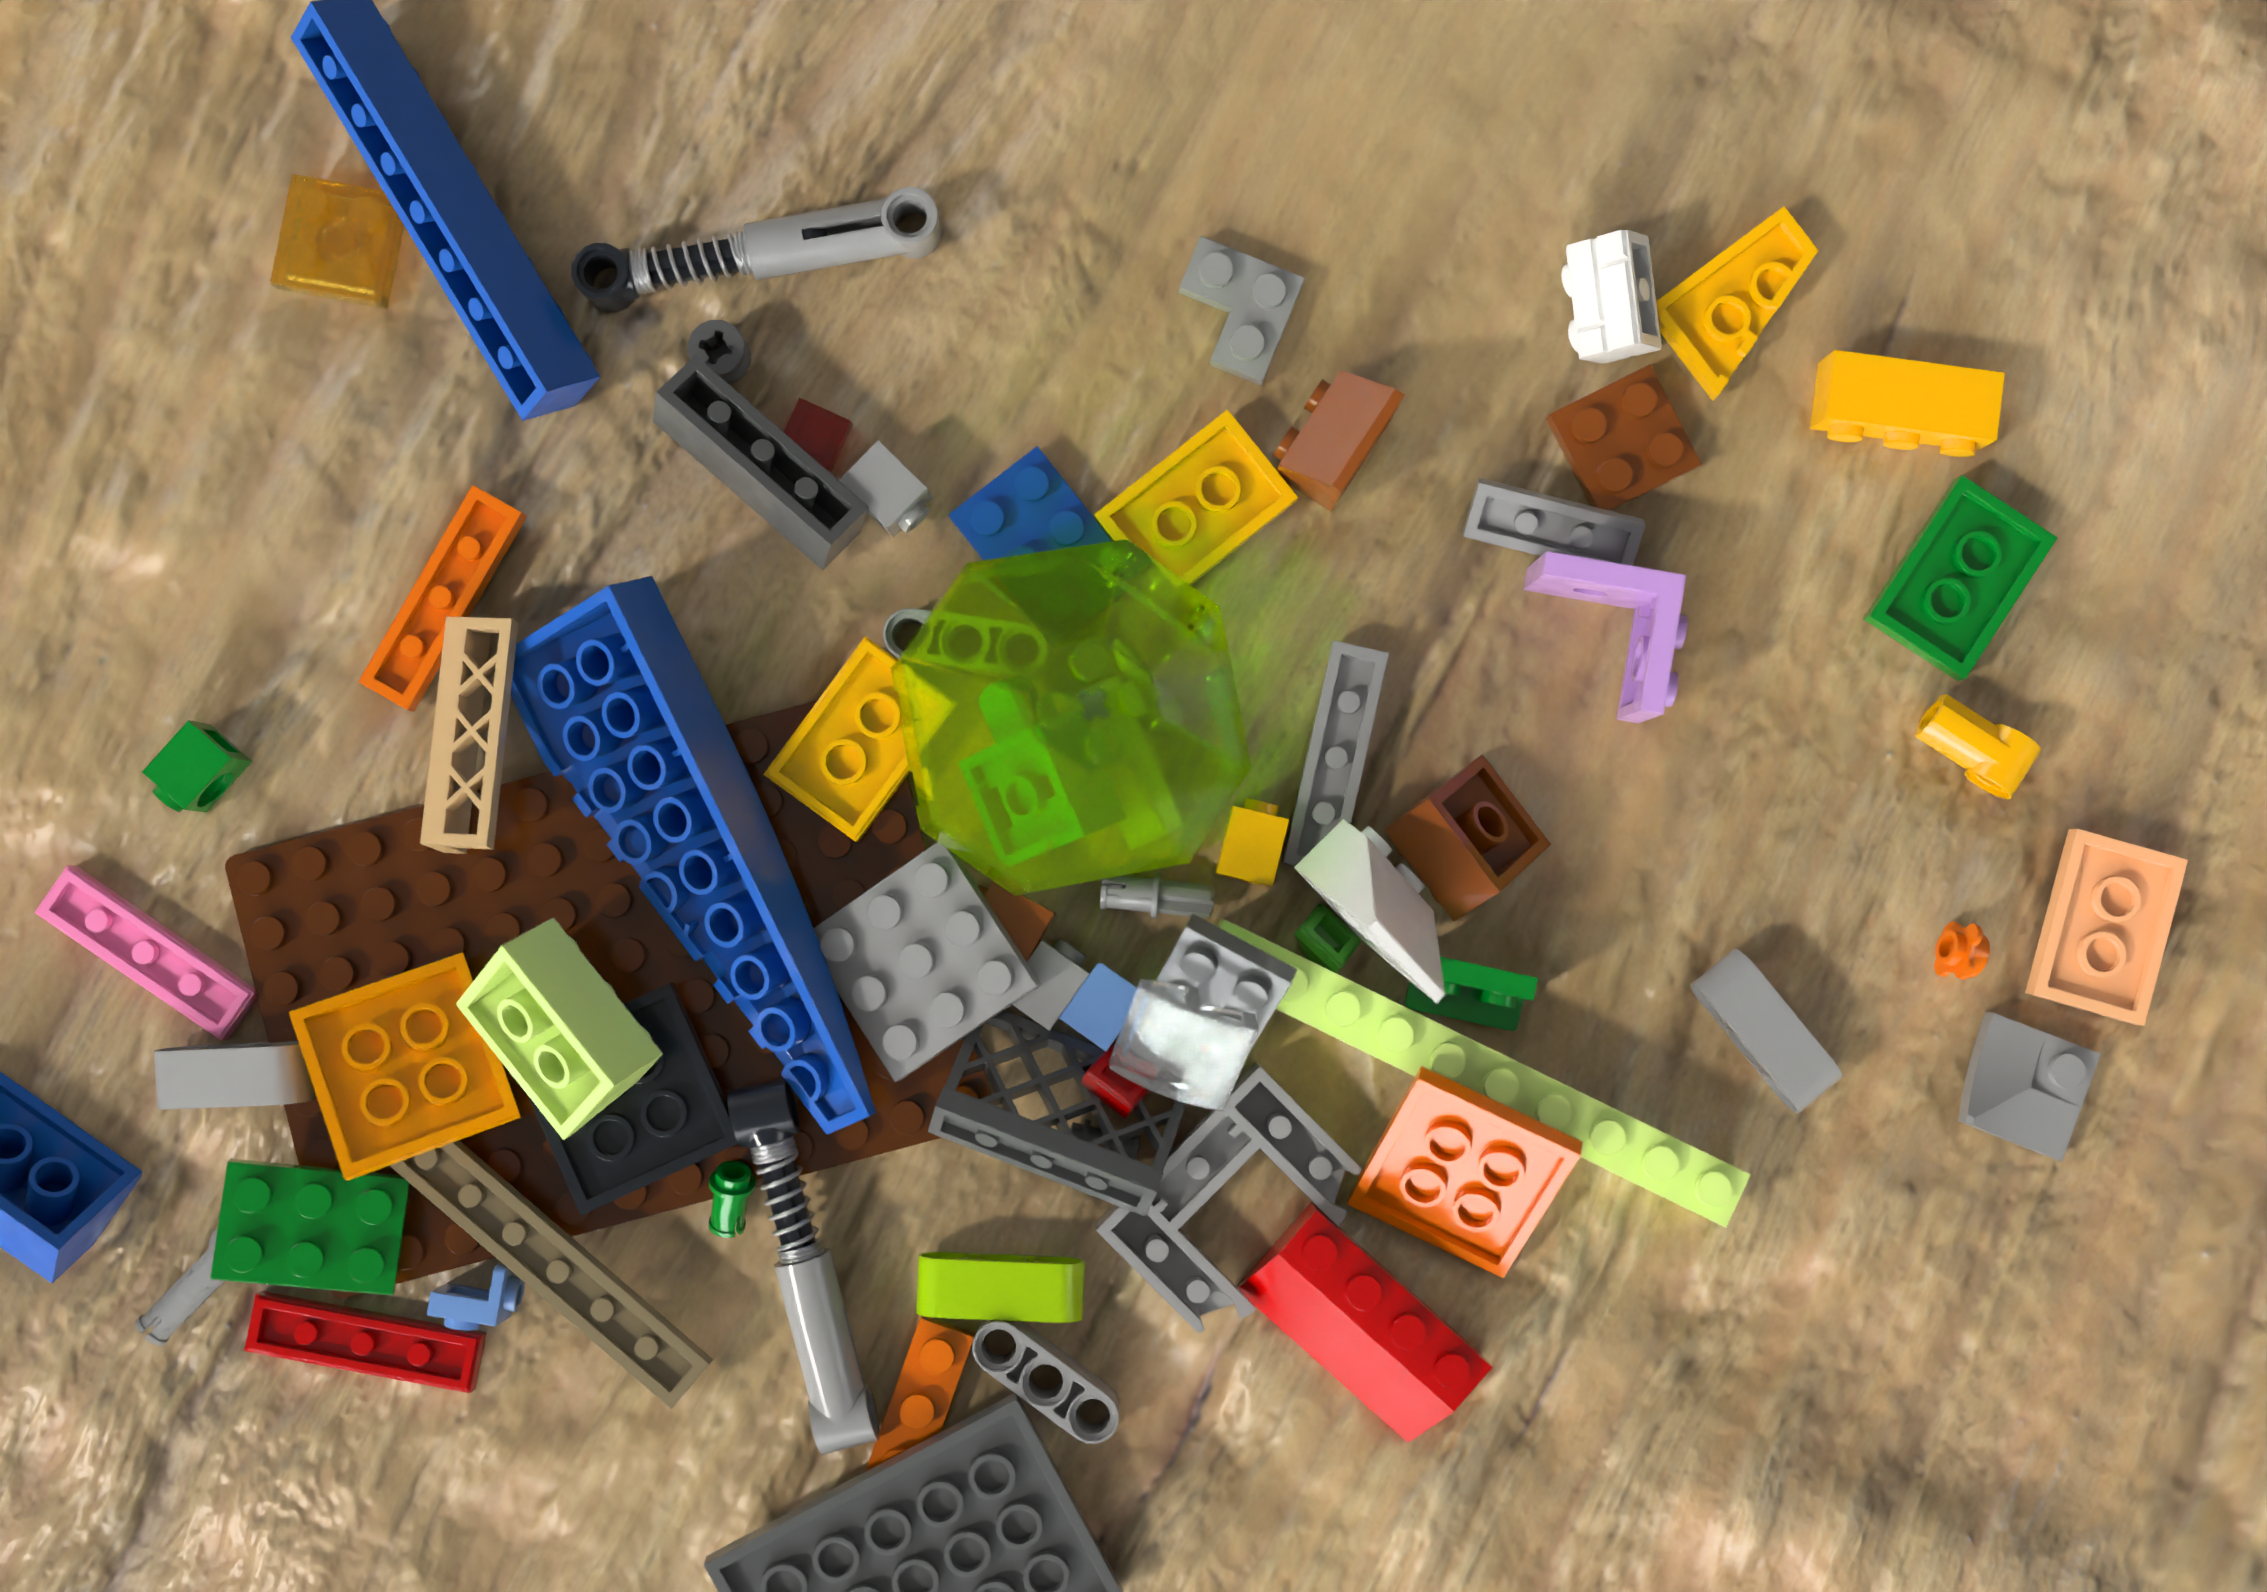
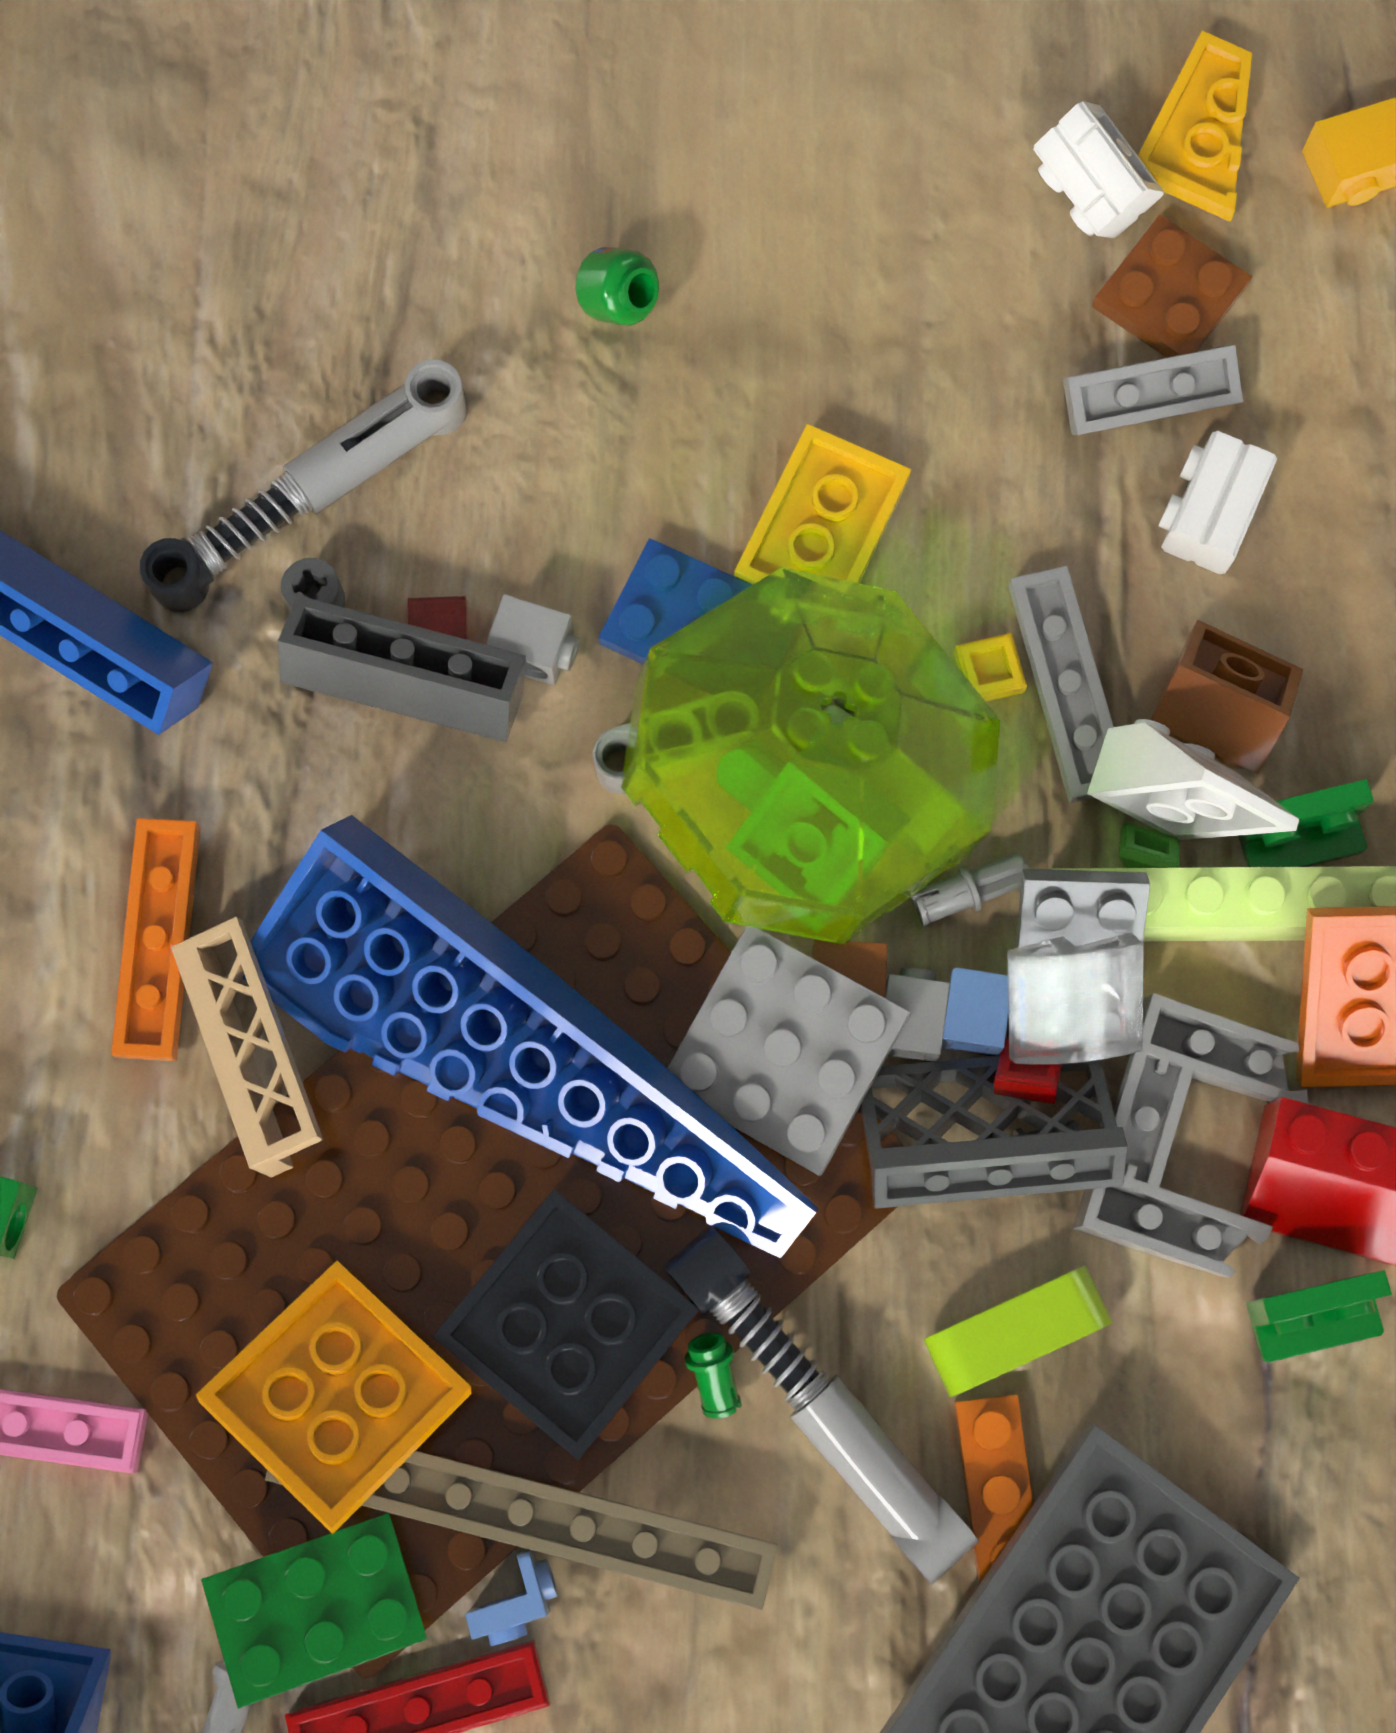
camera: 25 degrees left, 10 degrees down
(232, 1075) = (163, 1496): light grey beam -> none
(557, 1027) = (469, 1279): yellowish green slope -> none
(849, 746) = (614, 884): yellow tile -> none
(1057, 1403) = (1138, 1389): light grey beam -> none
(1122, 197) = (617, 286): none -> green head
(1252, 843) = (1034, 796): yellow brick -> none
(1254, 296) = (780, 322): light grey plate -> none
(1256, 1398) = (1318, 1316): none -> green bracket
(1276, 709) = (992, 666): none -> yellow tile
(1337, 437) = (920, 397): slope -> none
(1554, 659) = (1218, 502): none -> white brick
(1655, 625) = (1292, 423): lavender bracket -> none

